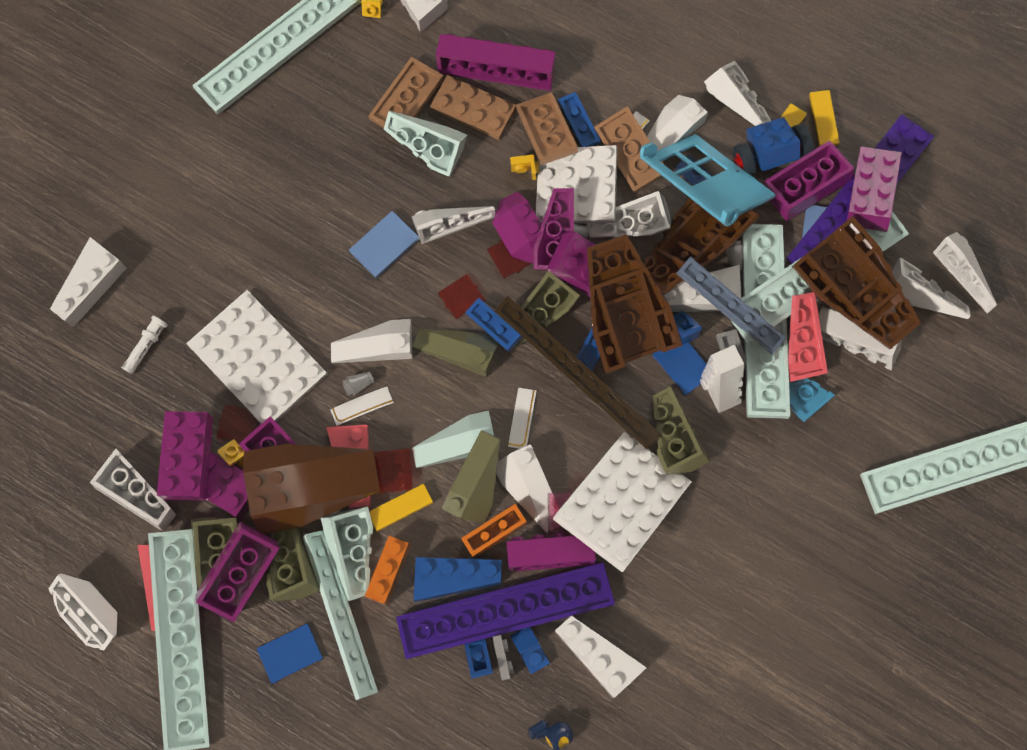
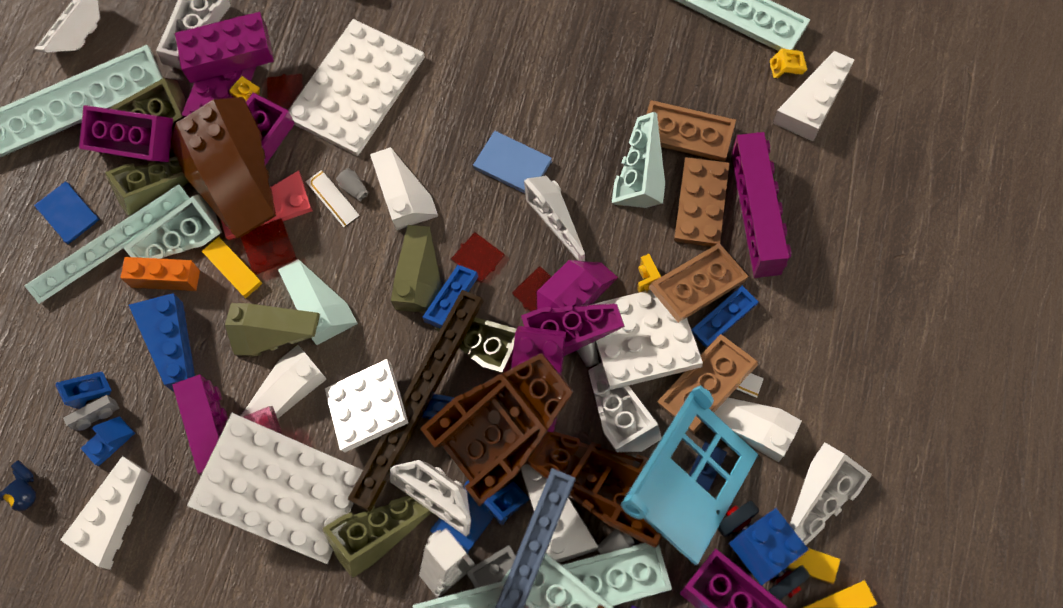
camera: 75 degrees right, 5 degrees down
(494, 531) = (220, 364): orange brick -> none
(504, 611) = (141, 402): dark purple plate -> none
(522, 418) = (356, 359): white sticker -> none
(569, 416) = (366, 406): none -> white plate
(661, 377) = (435, 492): none -> white wedge

